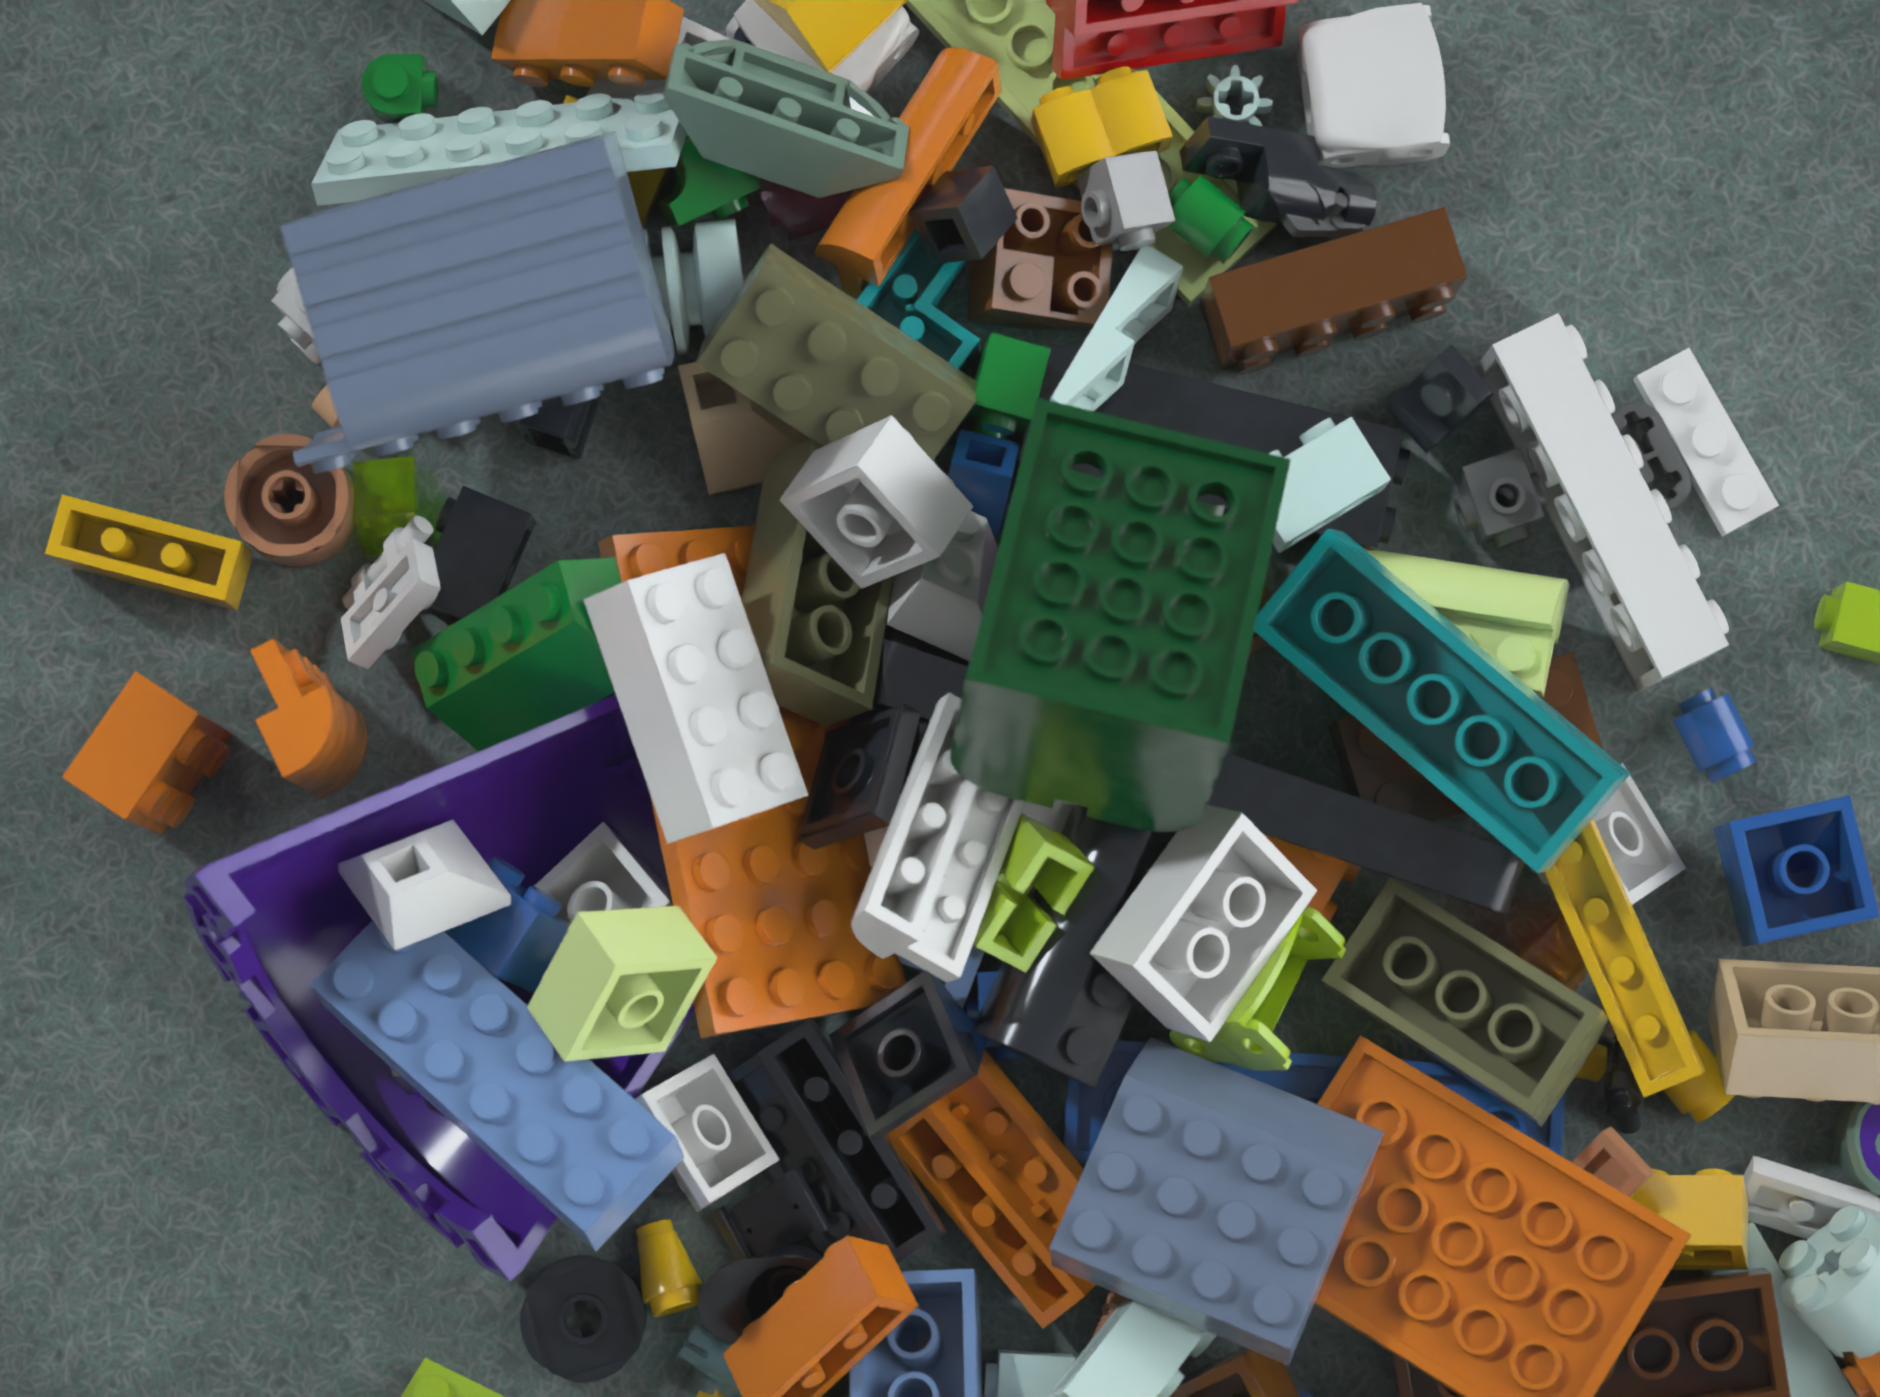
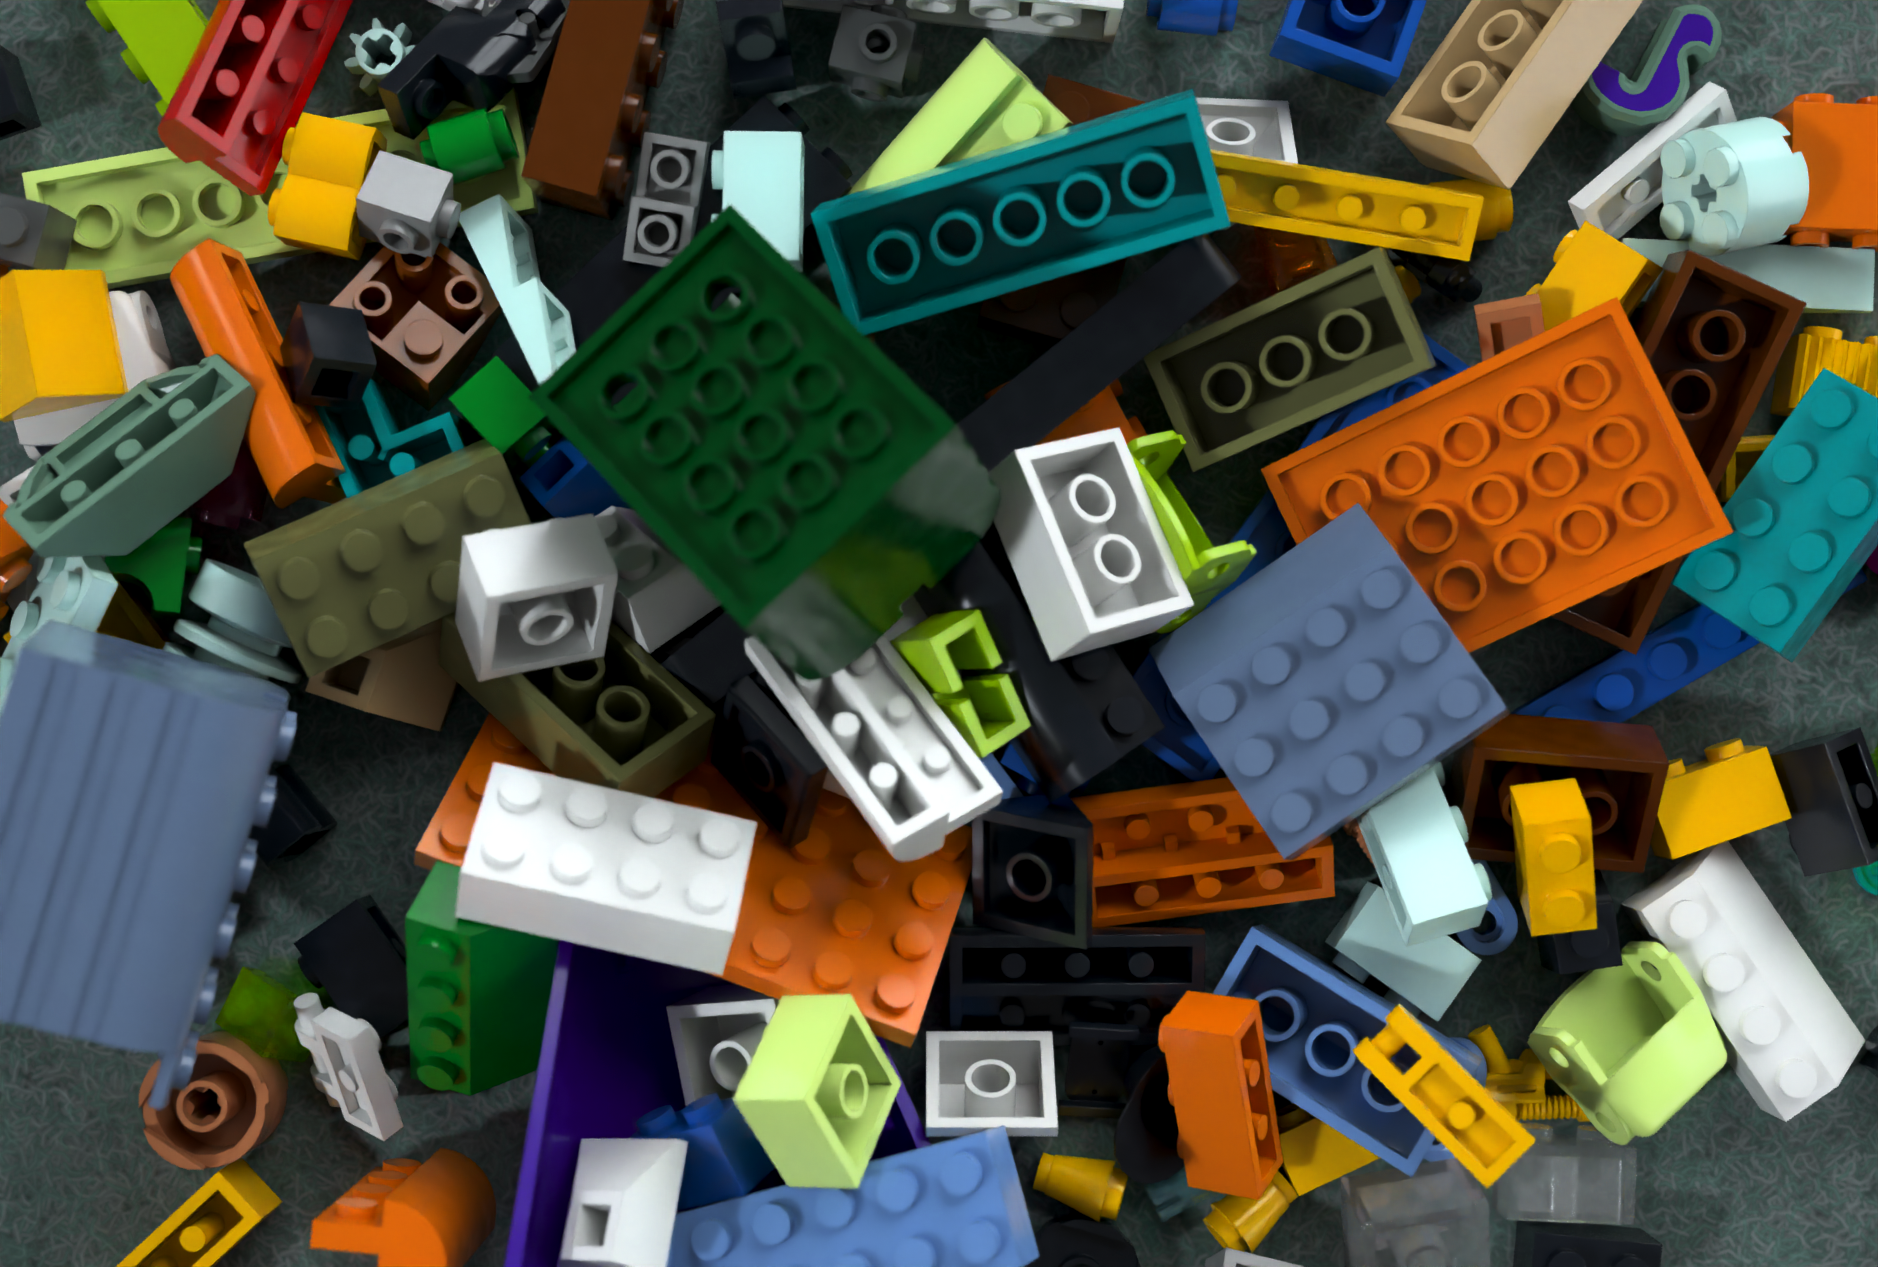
camera: 60 degrees left, 5 degrees up
(1266, 404) = (666, 198): none -> light grey slope

